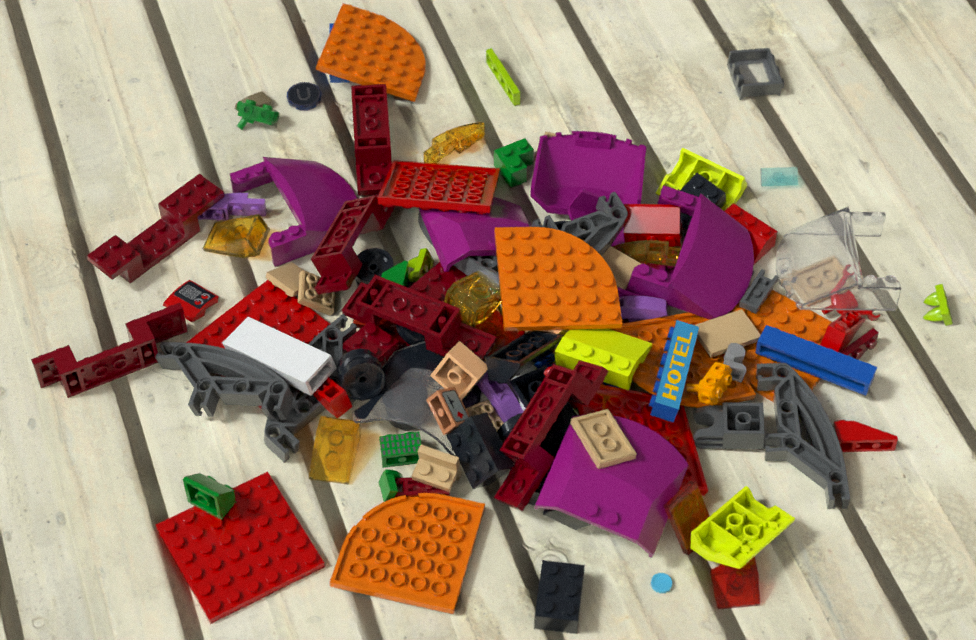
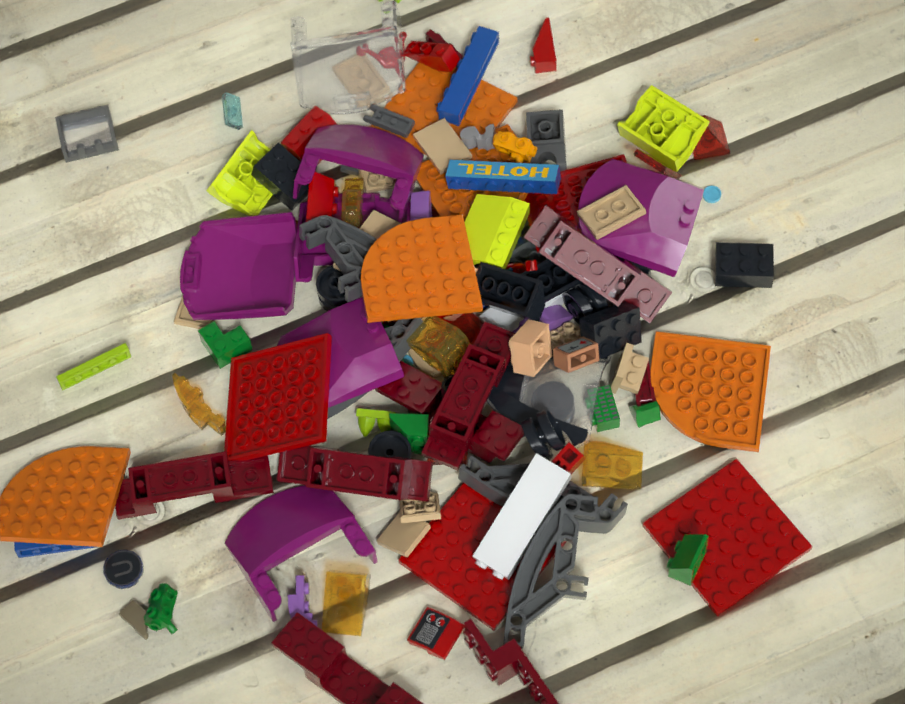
camera: 90 degrees left, 10 degrees up
(825, 459) = (535, 82): dark grey piece -> none

